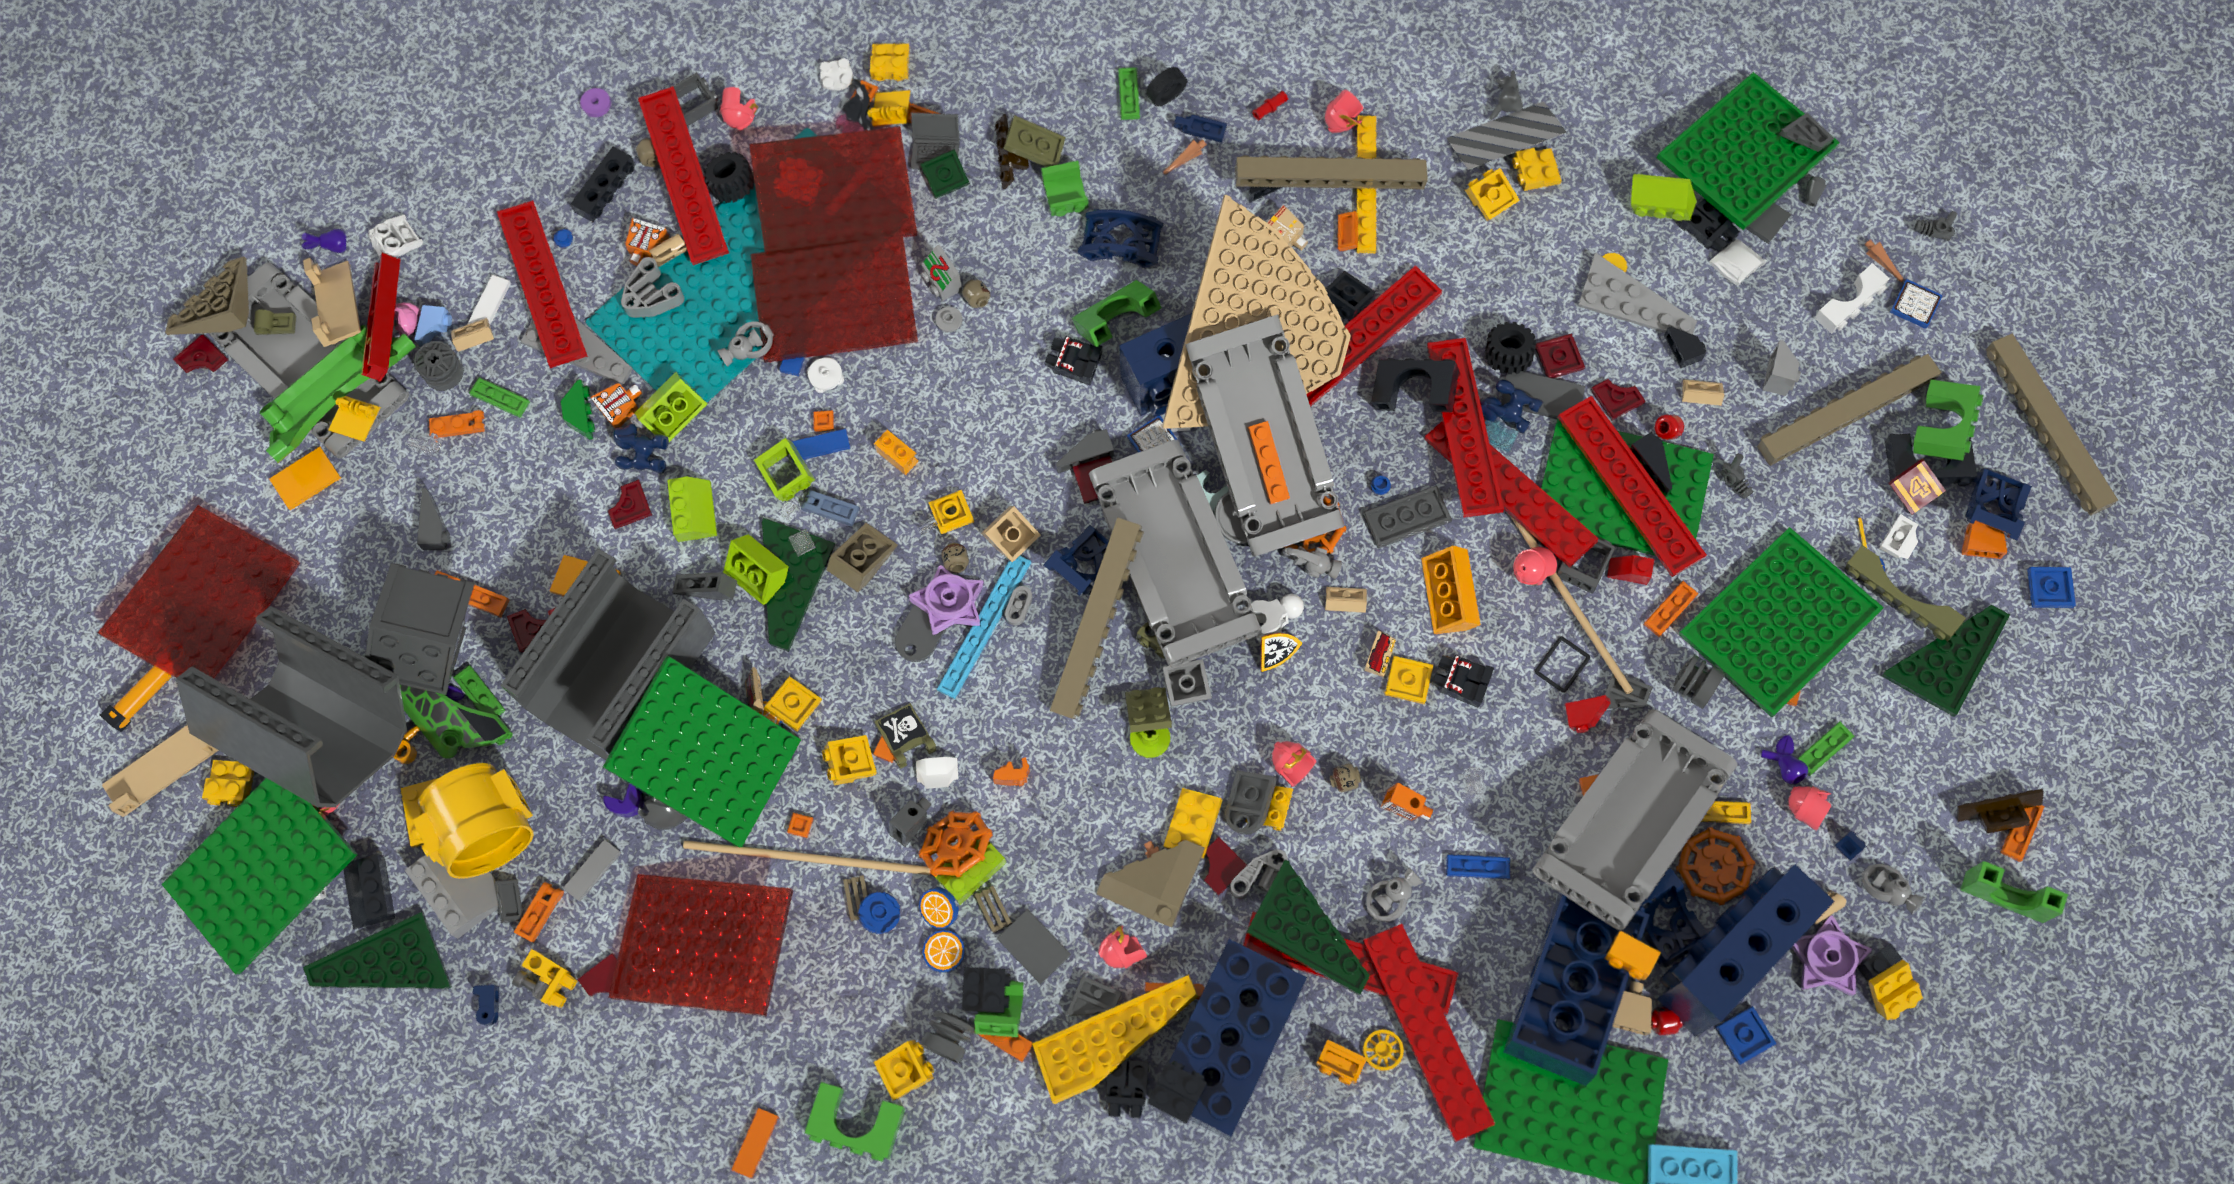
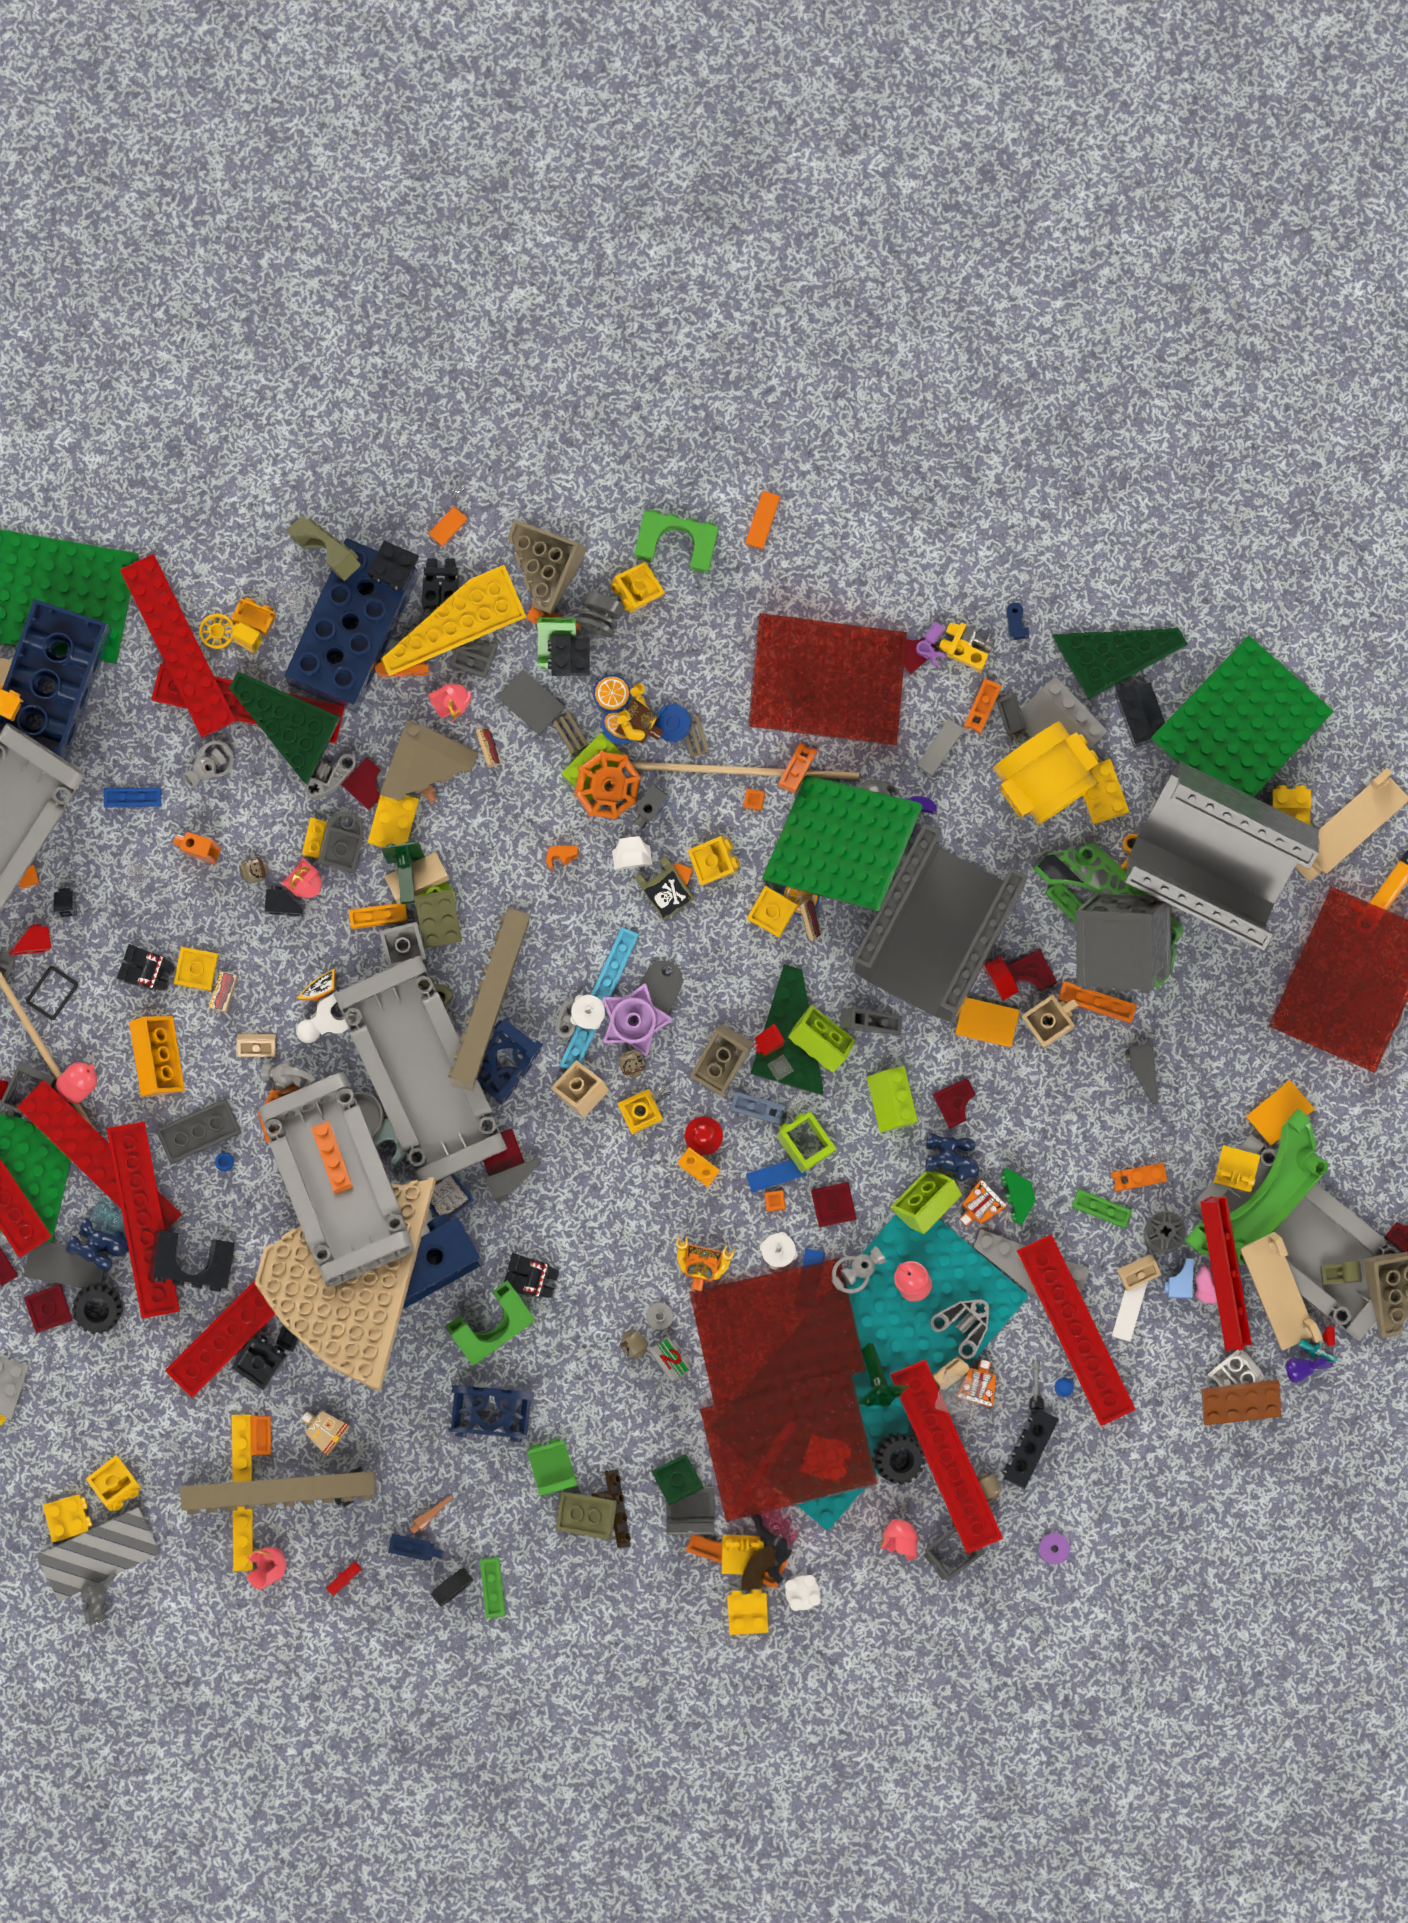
camera: 175 degrees right, 10 degrees up
(297, 268) = (1329, 1336): none -> red tile
(317, 259) = (1314, 1350): none -> teal piece
(394, 212) = (1241, 1402): none -> dark orange plate
(508, 574) = (1052, 1009): none -> tan hinge
(591, 225) = (1036, 1401): none -> hinge
(591, 979) = (924, 647): none -> medium lavender bar
(662, 225) = (958, 1394): none -> clear tile
(697, 340) = (916, 1285): none -> coral helmet
(738, 239) = (881, 1392): none -> dark green piece
(747, 852) = (797, 768): none -> orange plate
(765, 414) = (833, 1204): none -> dark red tile
(809, 564) = (768, 1041): none -> red slope
(875, 92) = (757, 1567): none -> dark brown tile
(888, 485) = (703, 1135): none -> red plate
(900, 363) = (702, 1263): none -> torso
(915, 914) = (638, 719): none -> torso
(996, 609) = (587, 1012): none -> white piece
(1004, 1107) = (546, 561): none -> dark tan slope
(1083, 898) = (488, 747): none -> slope
(1115, 1158) = (448, 526): none -> orange tile
(1169, 757) = (426, 874): none -> tan tile
(1181, 759) = (403, 856): none -> dark green piece
(1213, 724) = (378, 915): none -> light orange tile
(1239, 1099) = (310, 535): none -> olive arch
(1316, 740) = (281, 903): none -> black slope
(1349, 1035) = (246, 637): none -> yellow brick
(1551, 750) = (65, 903): none -> black slope

